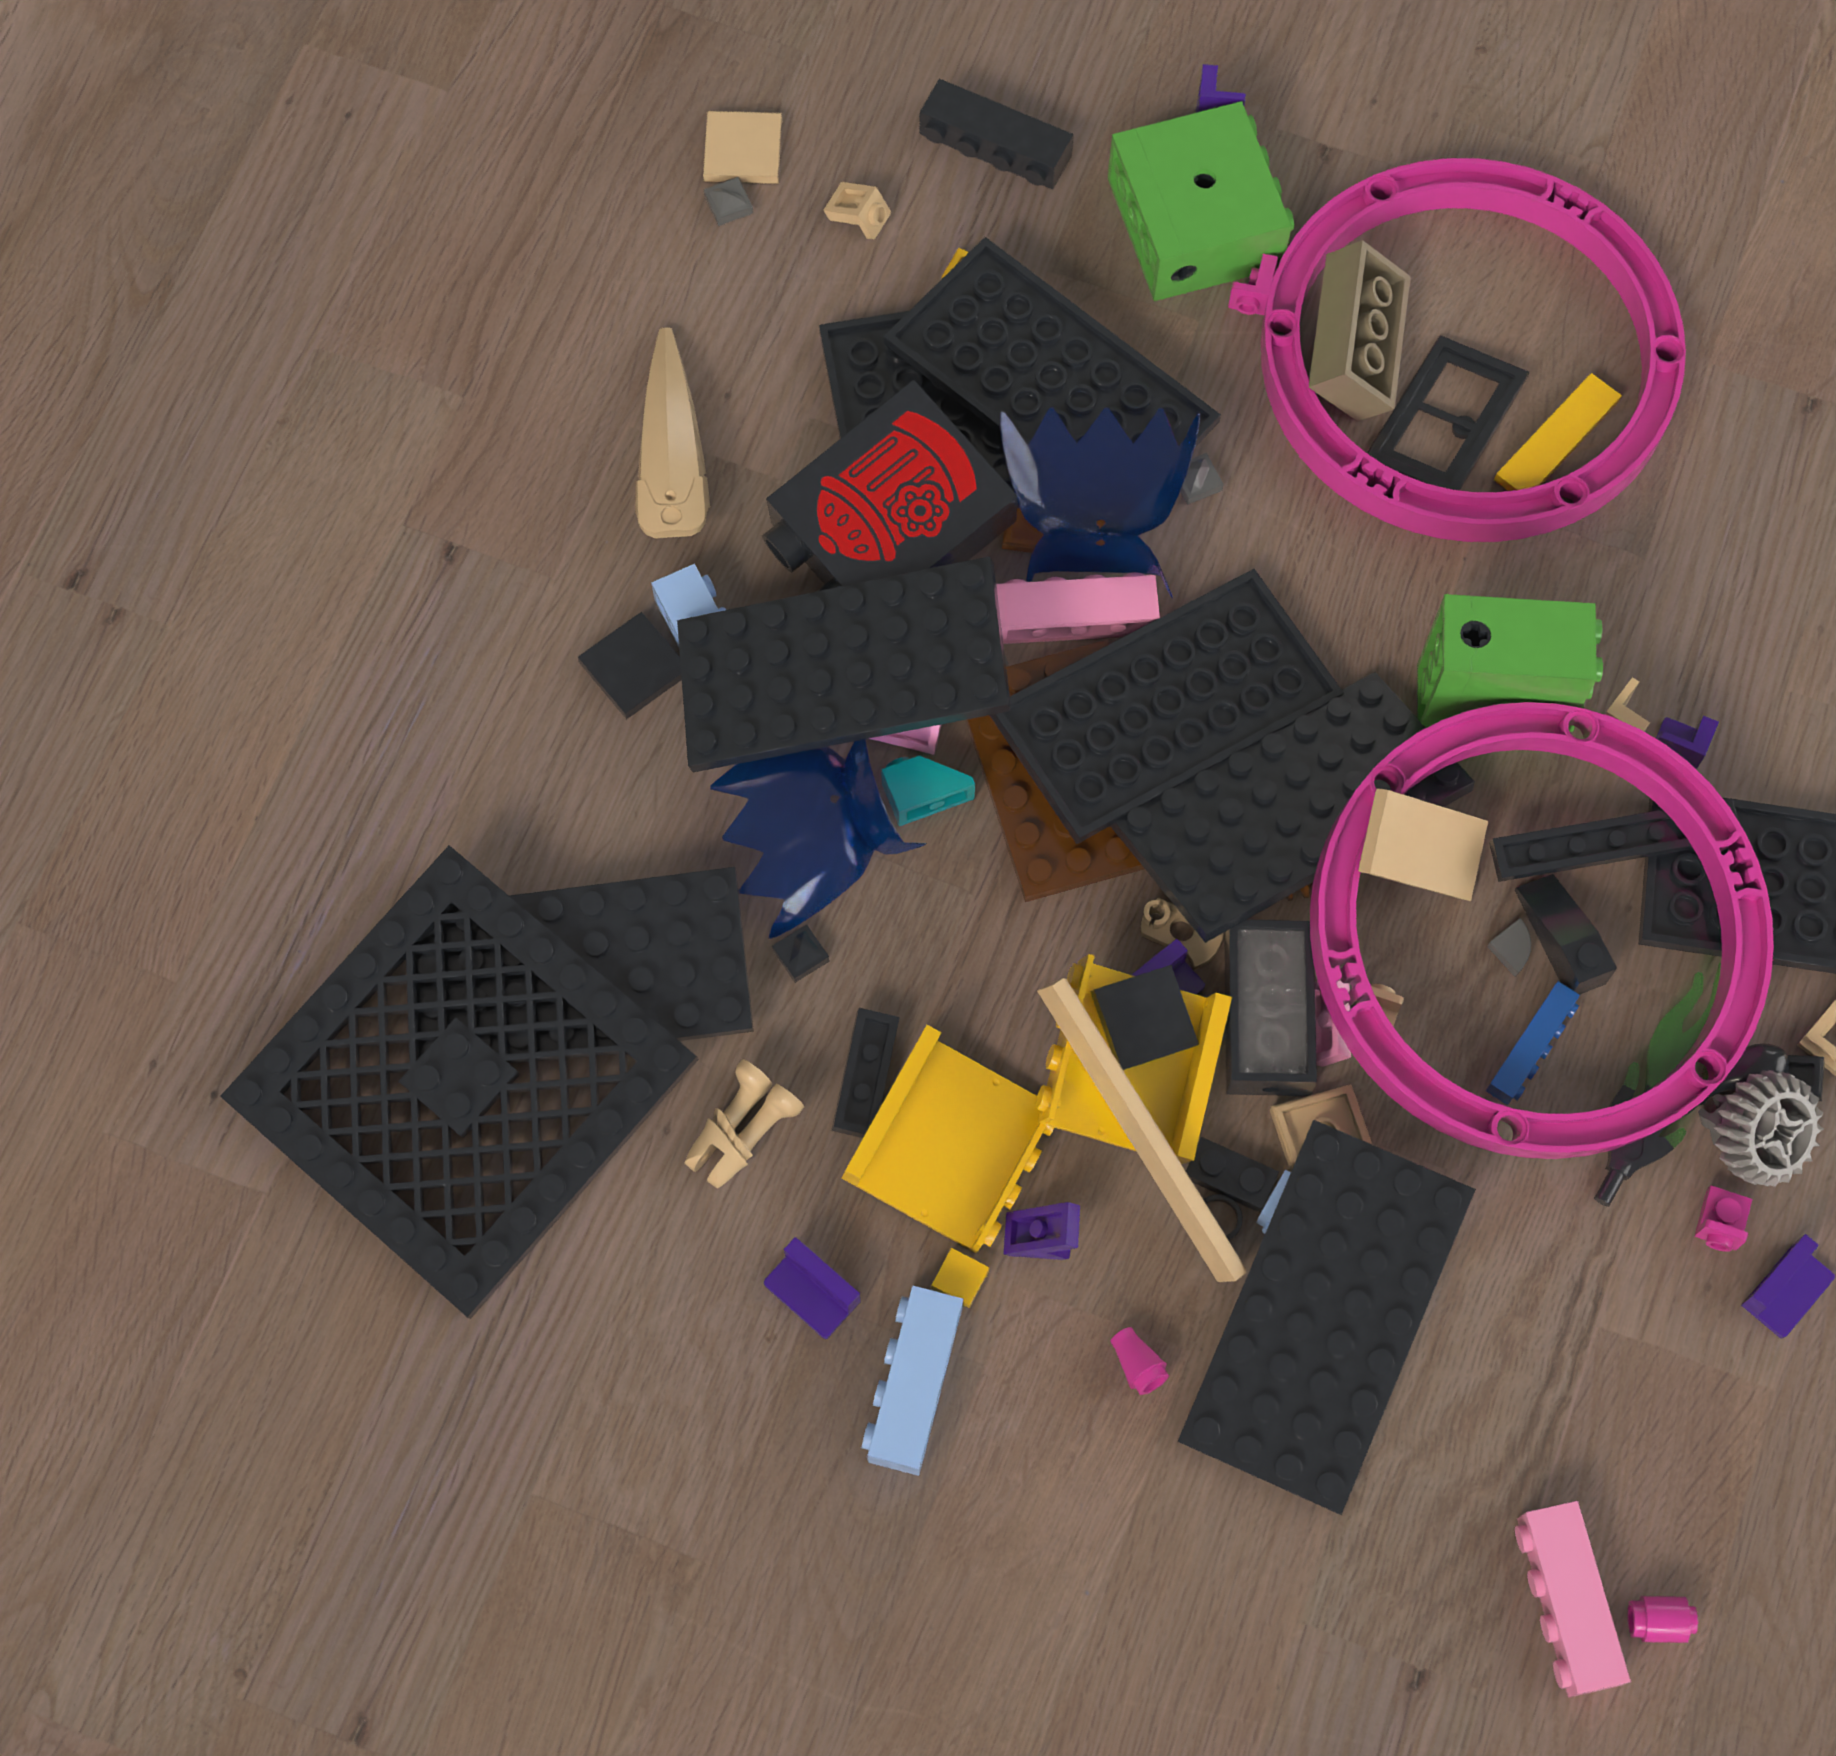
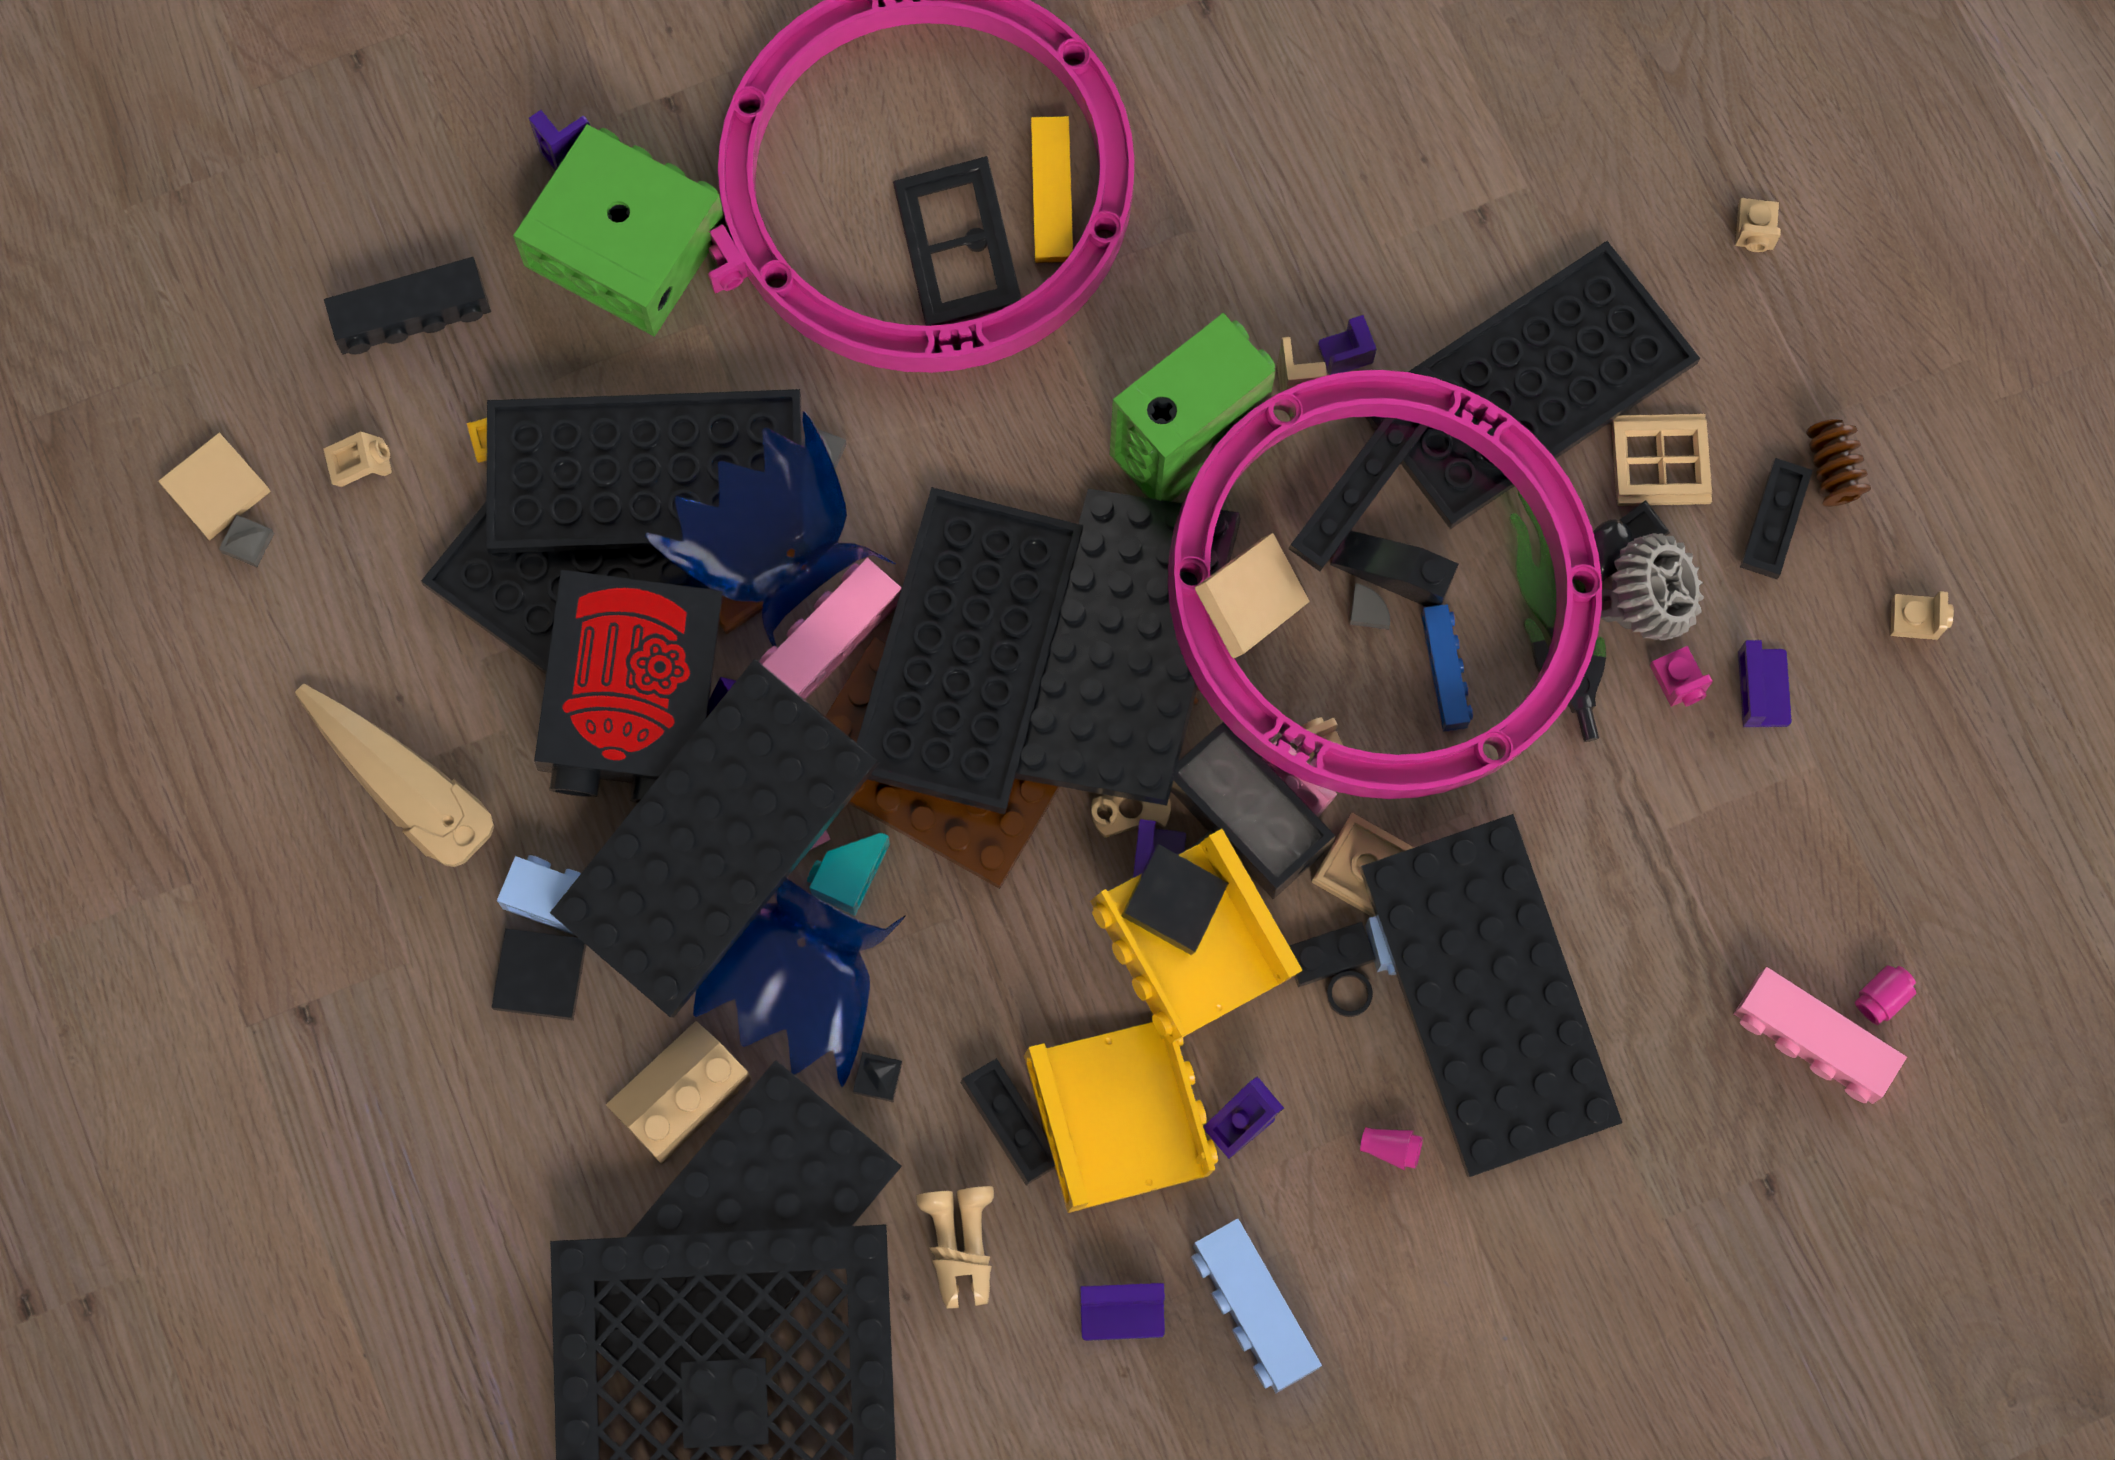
camera: 45 degrees left, 5 degrees up
(647, 835) = (679, 1091): none -> tan slope
(960, 1277) = (1215, 1204): yellow tile -> none
(1142, 1130) = (1251, 983): tan tile -> none
(1360, 331) = (839, 232): dark tan brick -> none

